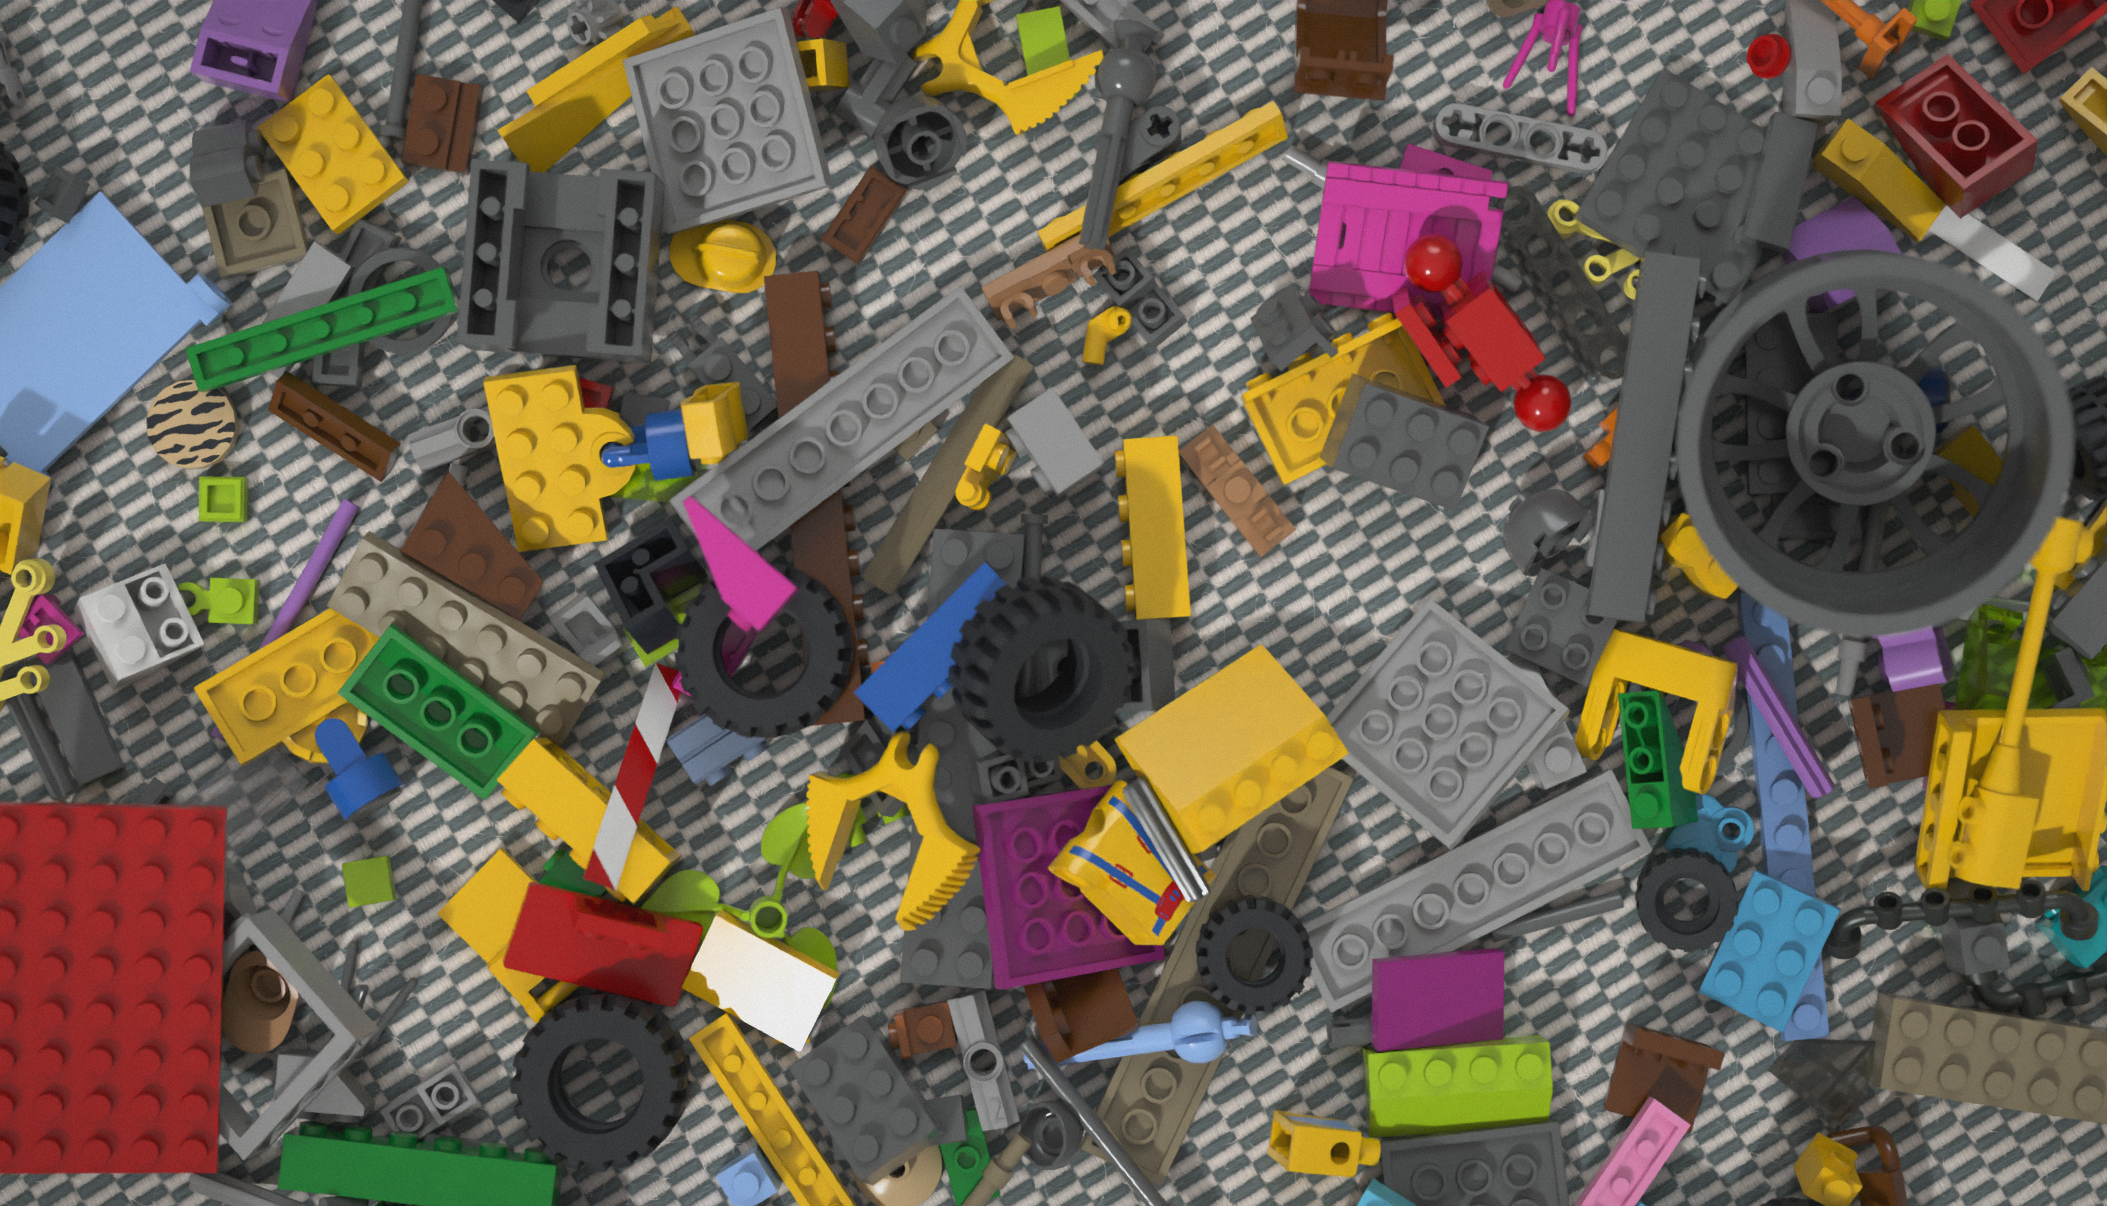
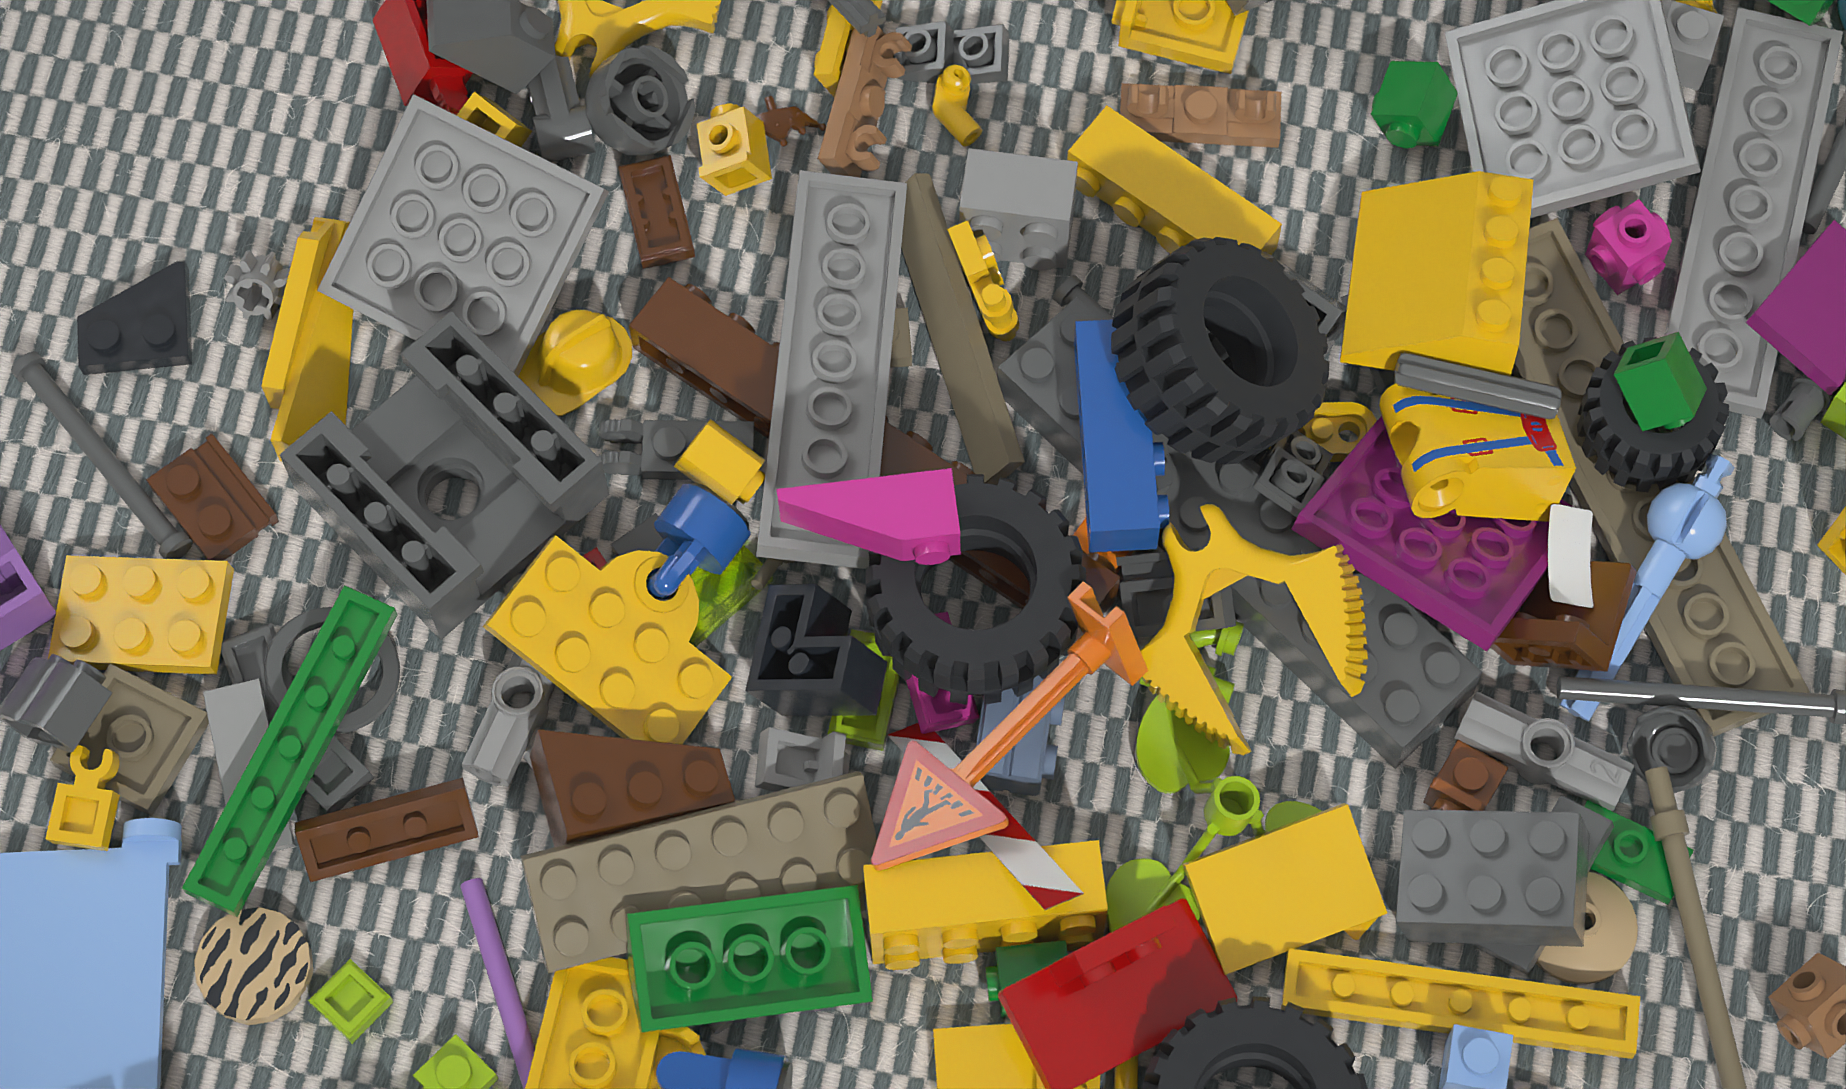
camera: 45 degrees left, 20 degrees down
(183, 241) = (85, 811): none -> yellow plate
(604, 749) = (938, 804): none -> orange piece
(946, 225) = (733, 149): none -> yellow brick
(993, 233) = (781, 121): none -> reddish brown piece
(1114, 979) = (1570, 555): none -> white sticker
(1260, 953) = (1660, 382): none -> green brick
(1354, 623) = (1414, 103): none -> green brick
(1356, 831) = (1628, 246): none -> dark pink brick

